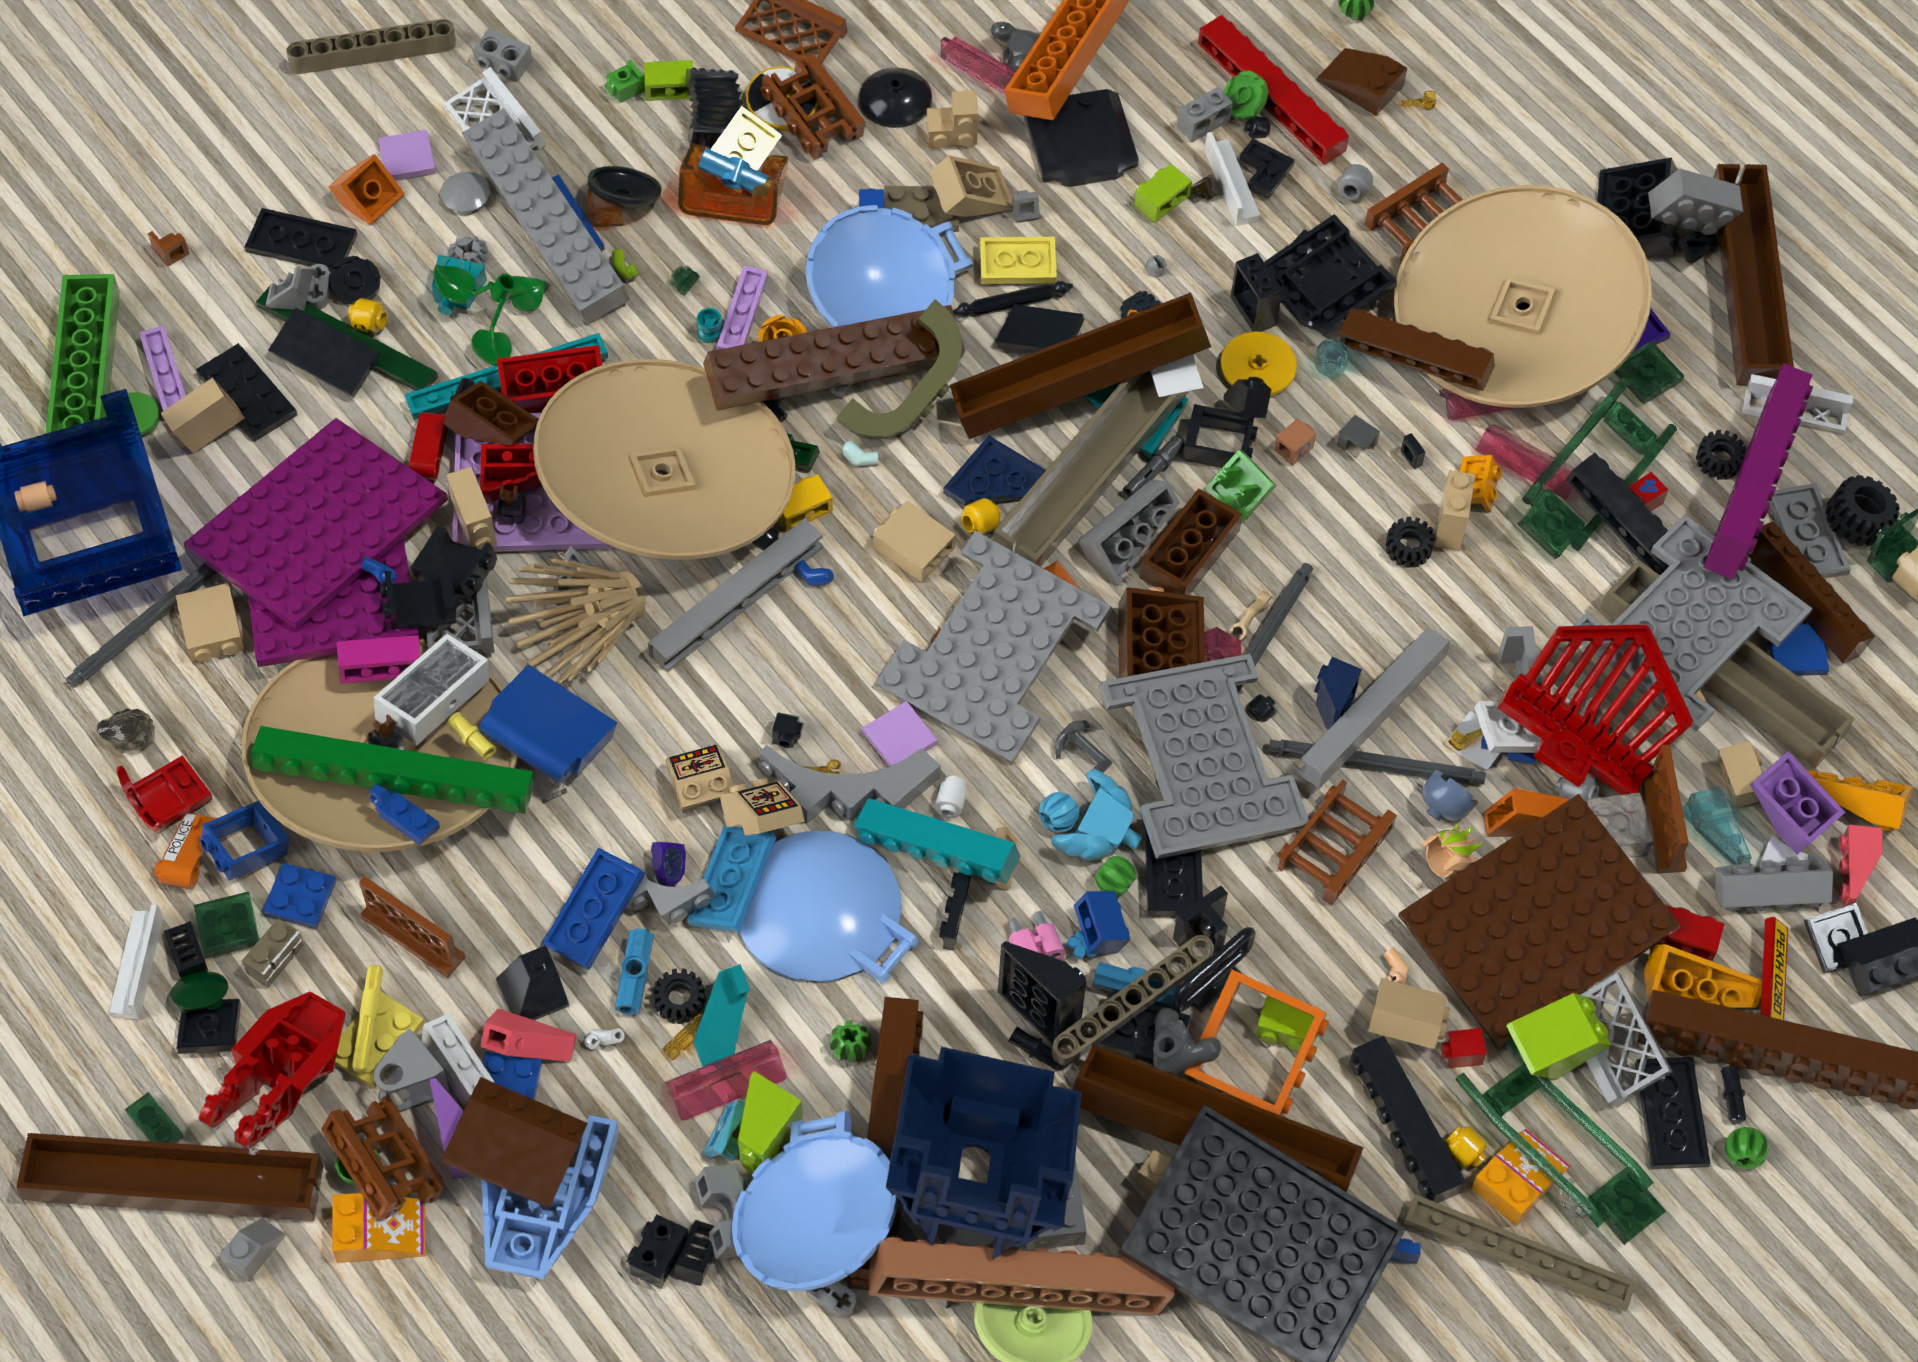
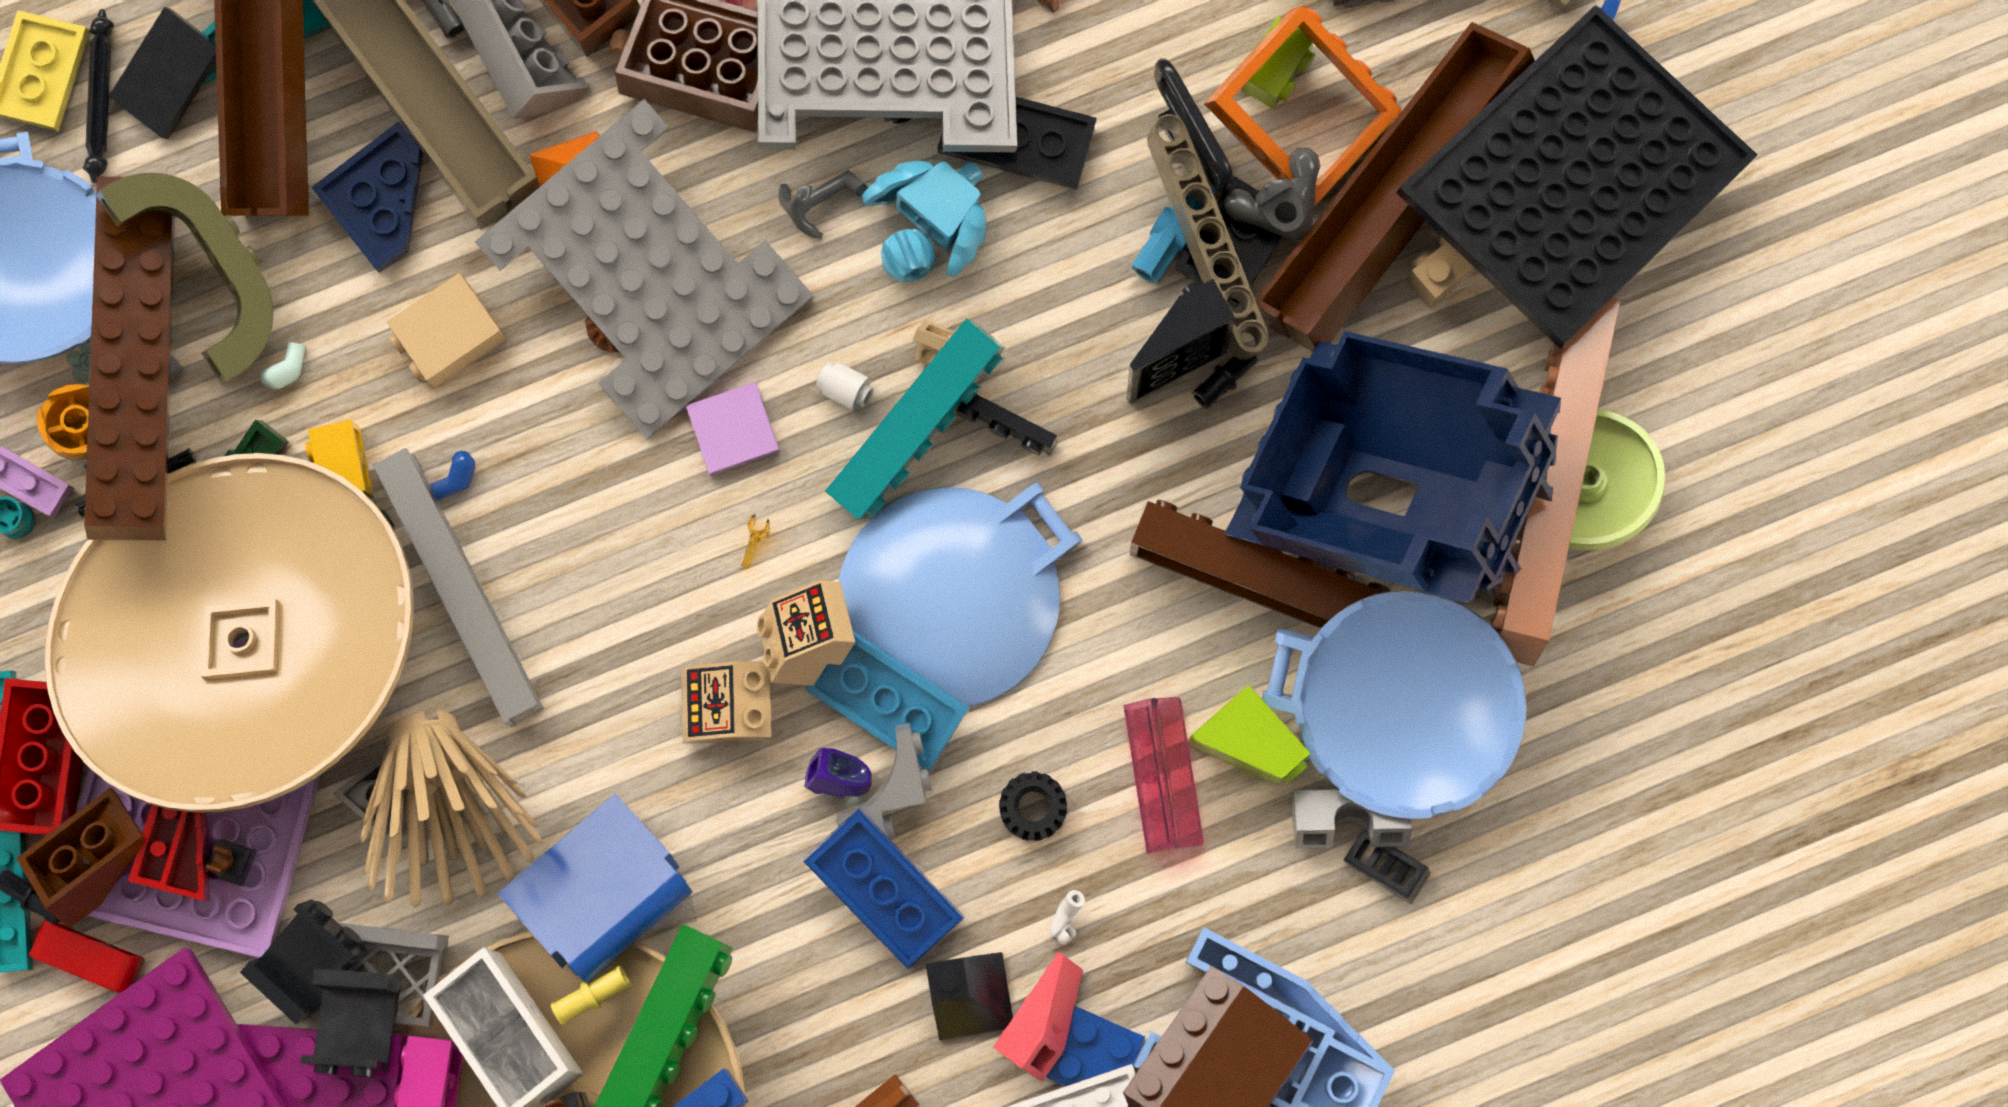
camera: 65 degrees left, 20 degrees up
(377, 569) = (285, 1068): blue arm -> none
(471, 508) = (226, 918): tan brick -> none
(636, 957) = (962, 844): dark azure piece -> none
(657, 1250) = (1378, 916): black brick -> none
(682, 1039) = (1090, 811): clear yellow axle -> none
(721, 1140) = (1247, 800): medium azure hinge -> none
(722, 1016) = (1079, 756): teal piece -> none
(786, 730) = (684, 572): black plate -> none
(849, 792) = (804, 516): light grey arch -> none
(850, 1041) = (1164, 595): bright green piece -> none
(980, 516) = (436, 233): yellow head -> none
(1042, 939) = (1085, 337): bright pink piece -> none
(1079, 946) = (1099, 278): dark azure plant -> none
(1102, 922) = (1079, 246): blue brick -> none
(1116, 875) = (1018, 210): bright green piece -> none
(1203, 919) = (1119, 118): black bracket -> none

